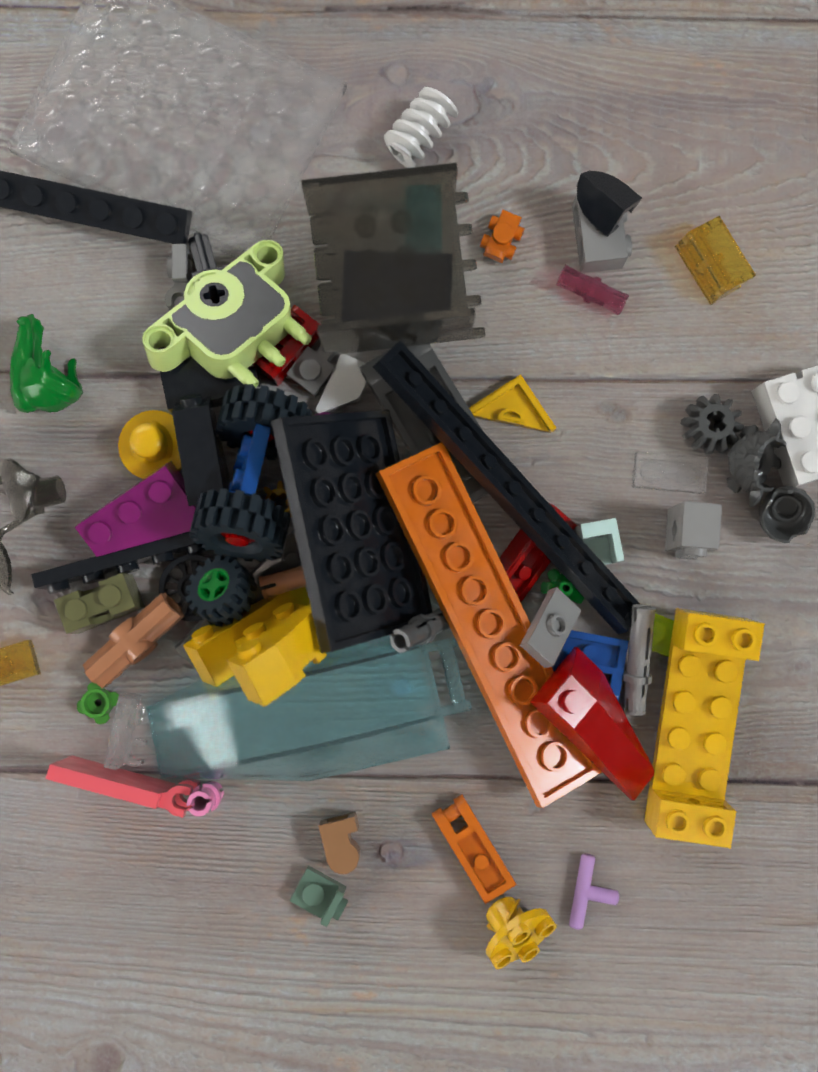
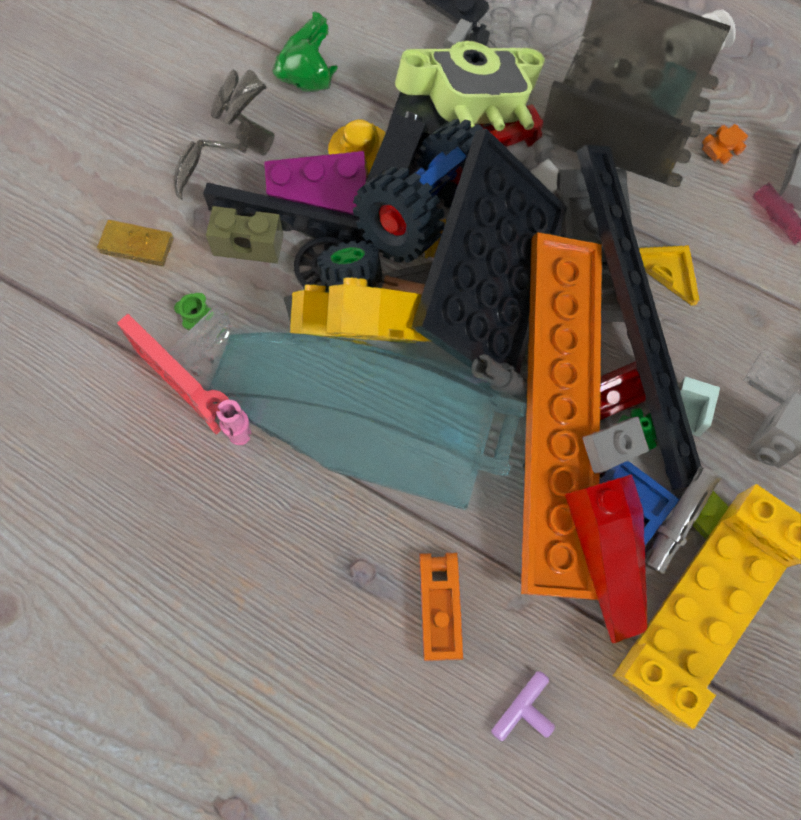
camera: 25 degrees right, 15 degrees down
(133, 640) = (253, 275): nougat piece -> none
(320, 895) = (278, 569): sand green bracket -> none
(340, 848) = (323, 529): medium nougat leg -> none
(516, 931) = (440, 703): yellow plate -> none

